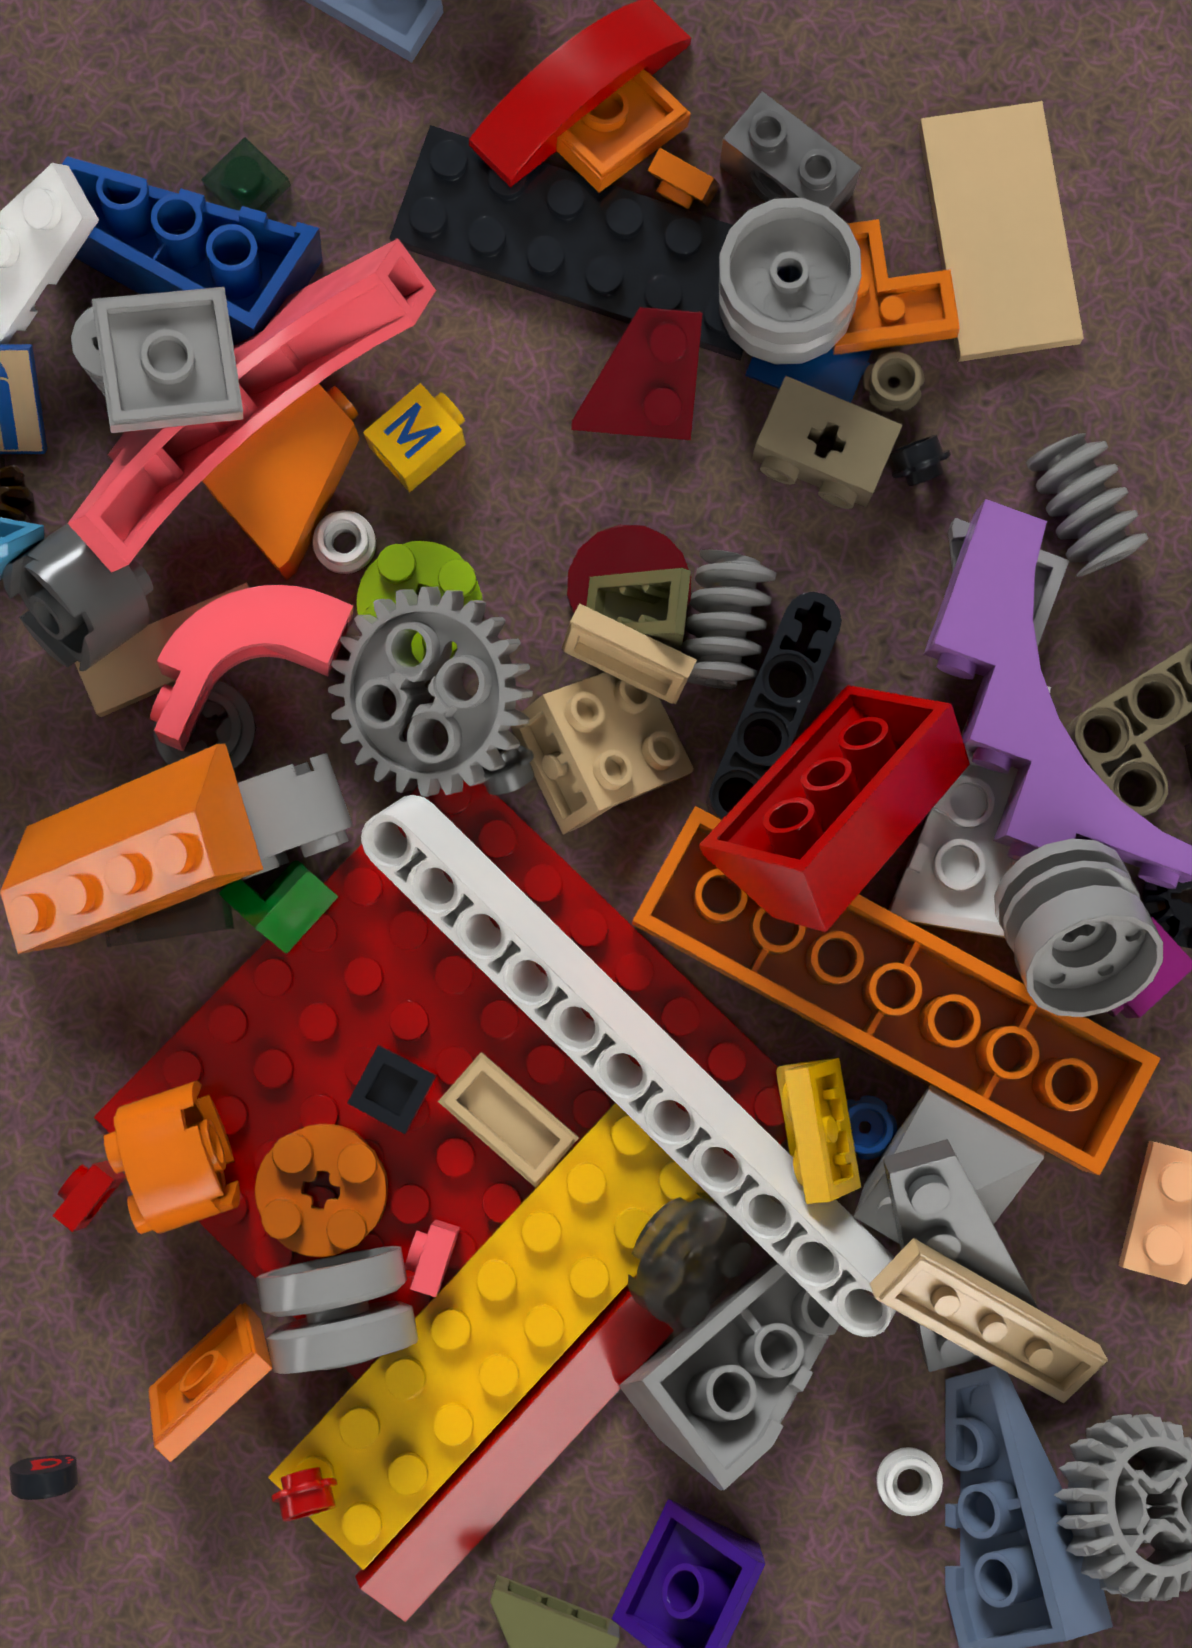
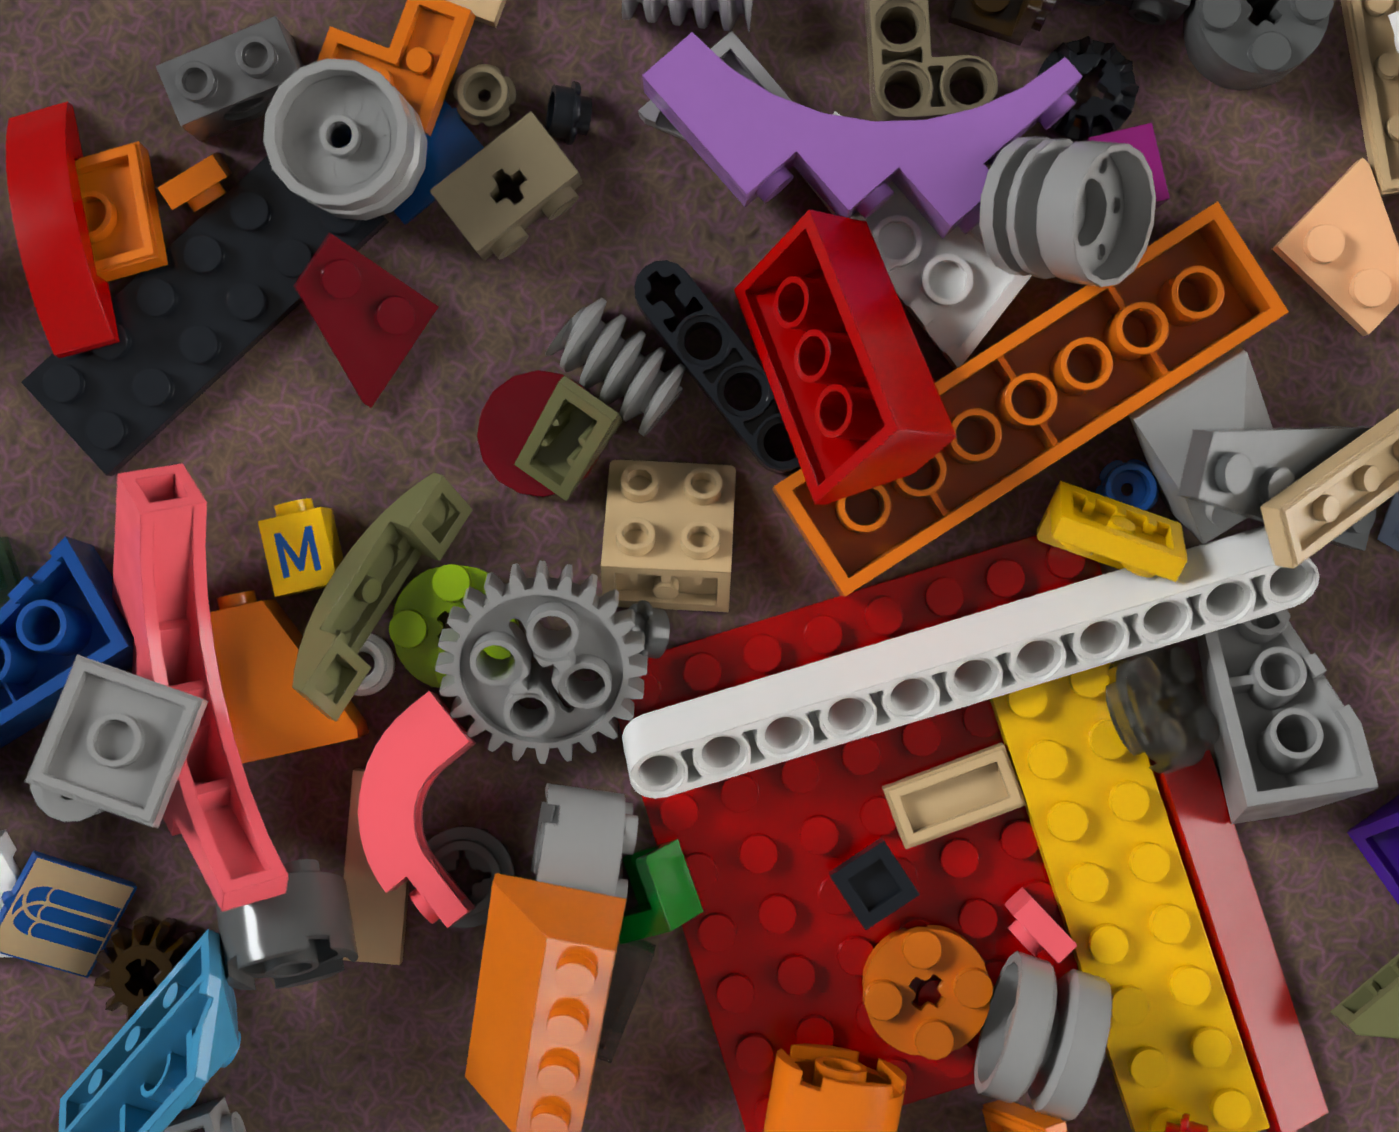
camera: 65 degrees left, 5 degrees up
(417, 505) = (365, 584): none -> olive slope
(627, 654) = (605, 470): tan tile -> none

